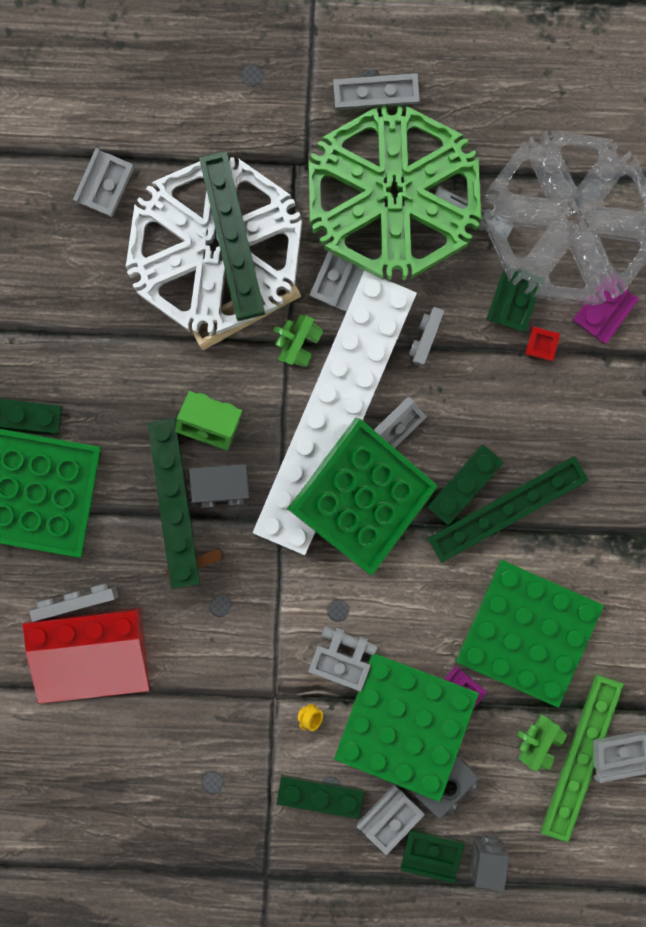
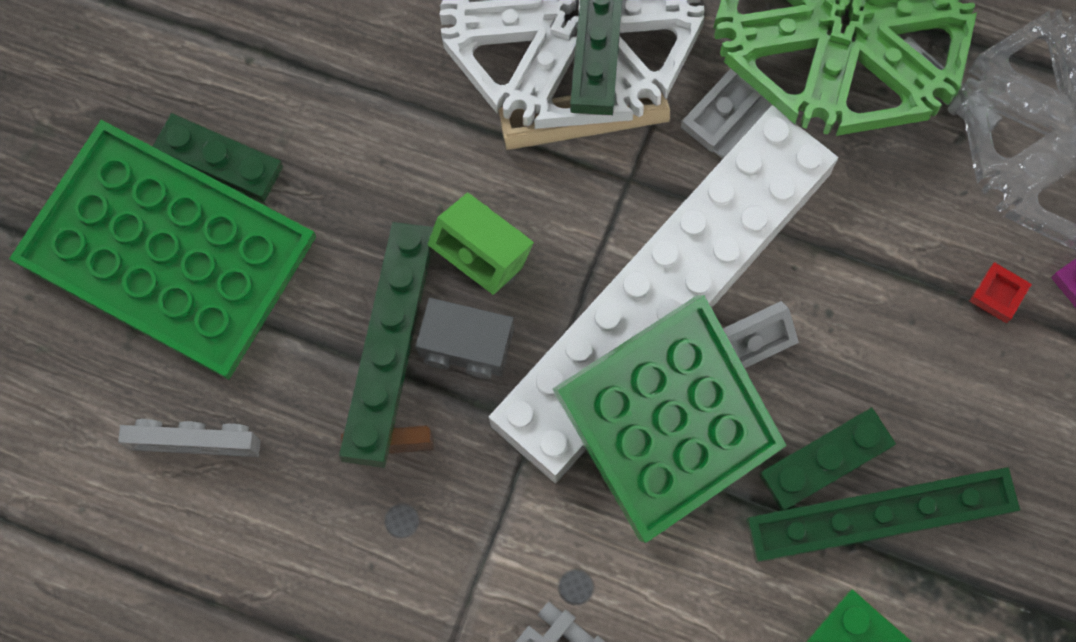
camera: 20 degrees right, 15 degrees down
(87, 655) = (178, 524): slope -> none
(292, 338) = (658, 164): bright green hips -> none
(429, 325) = (840, 216): light grey plate -> none
(511, 304) = (971, 223): dark green plate -> none

